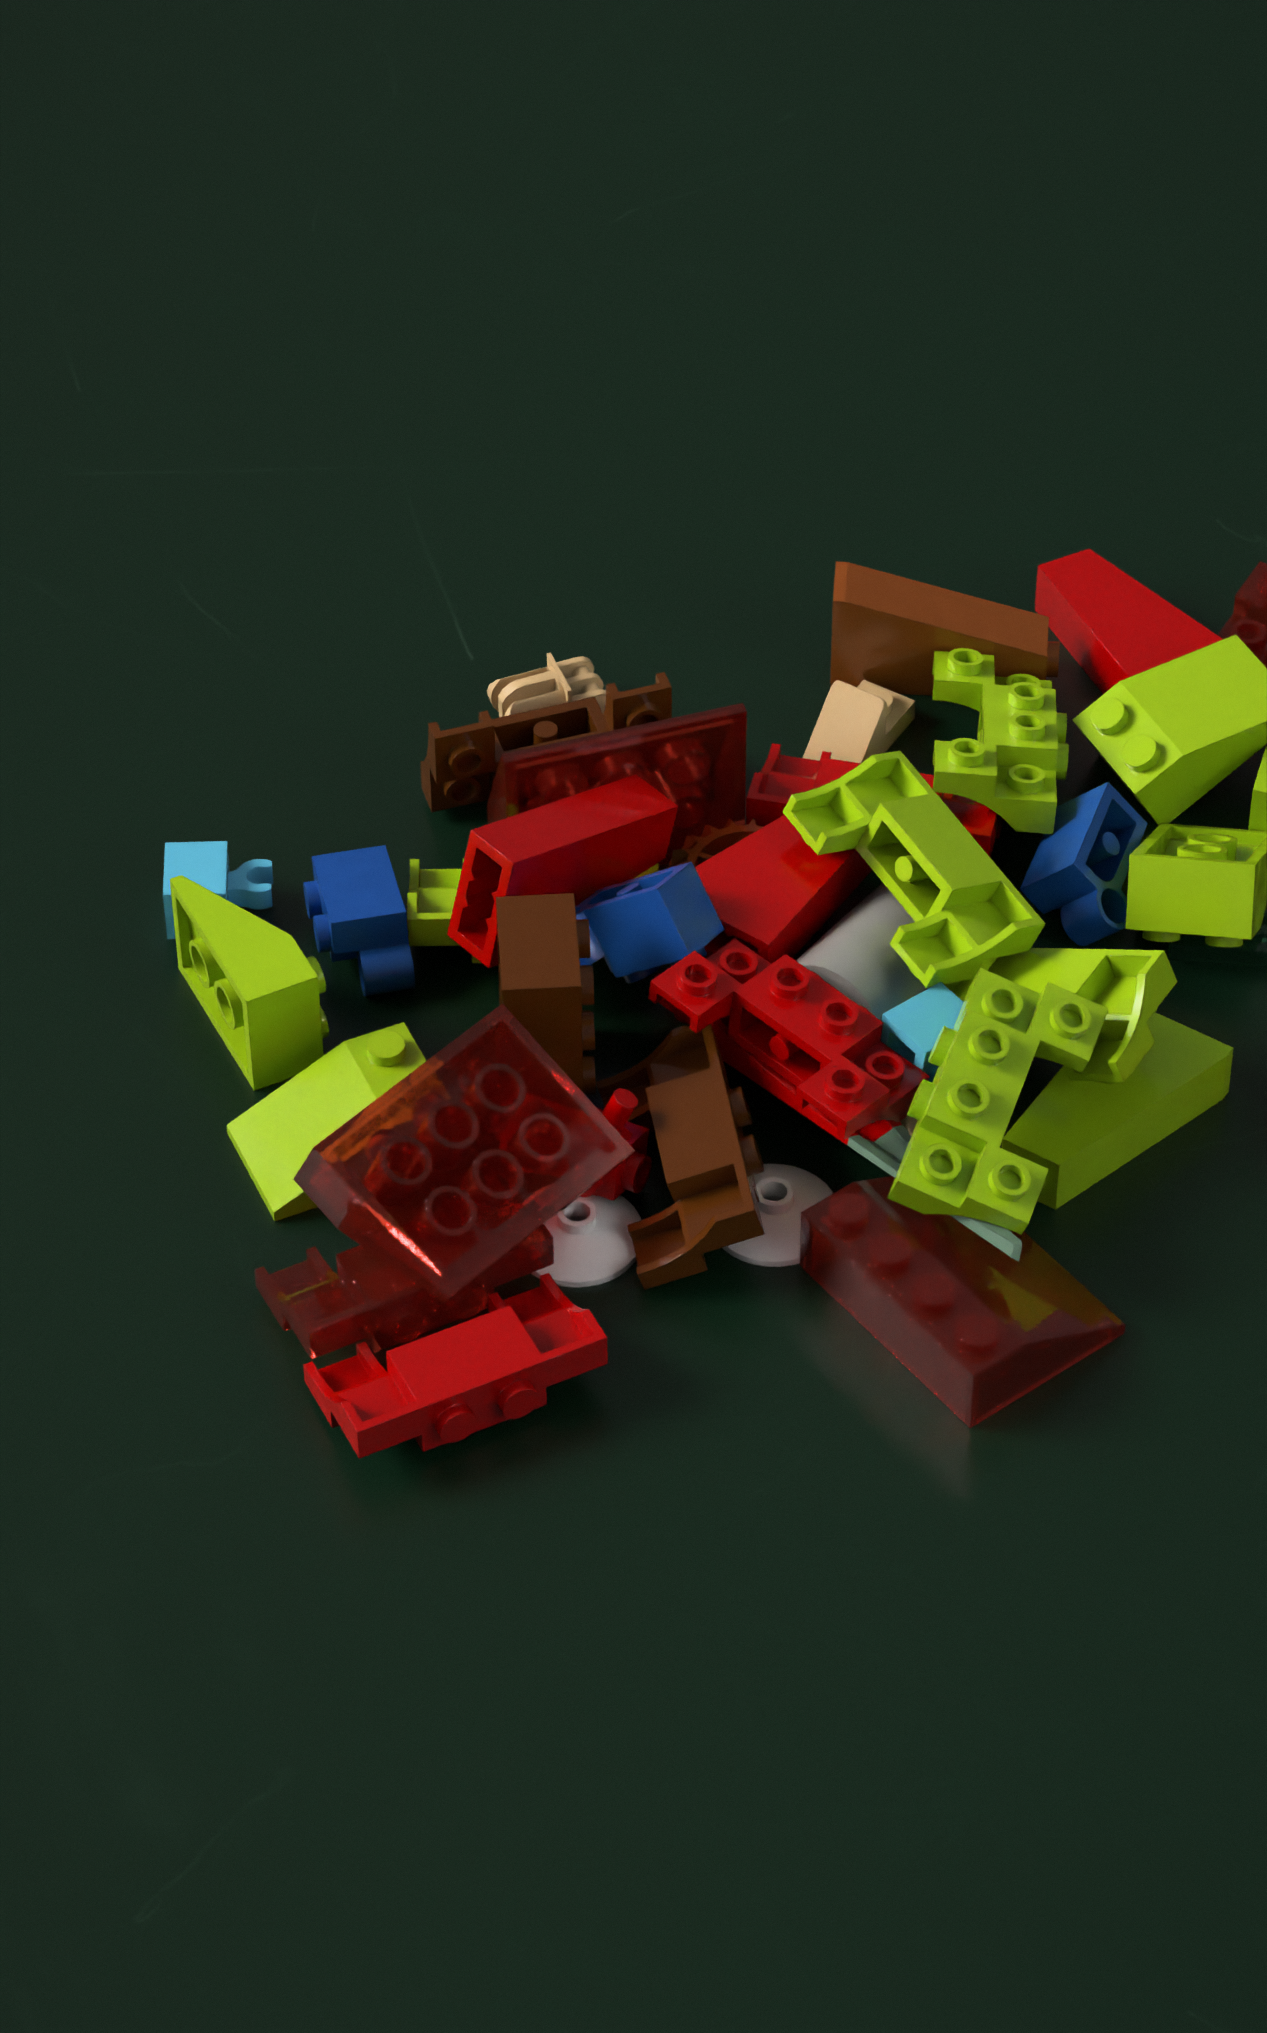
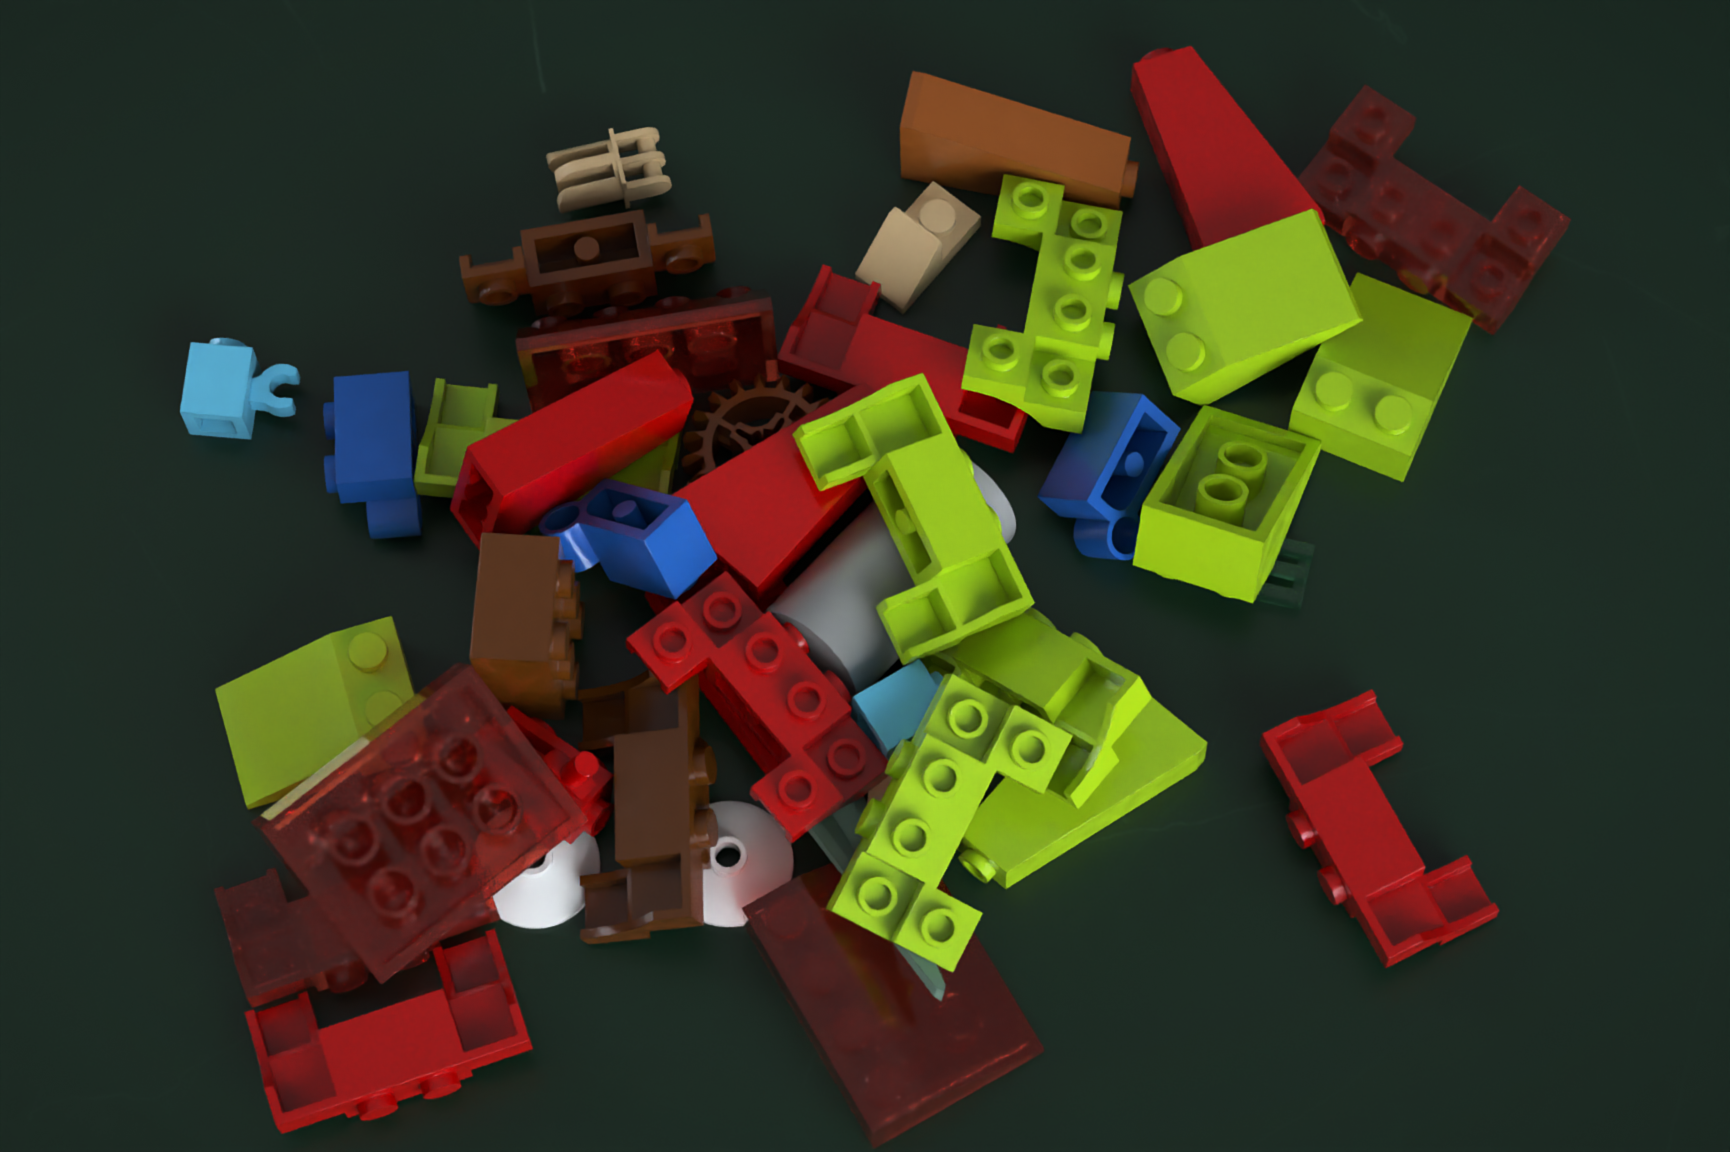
camera: 10 degrees right, 25 degrees up
(250, 984) = (263, 566): lime slope -> none

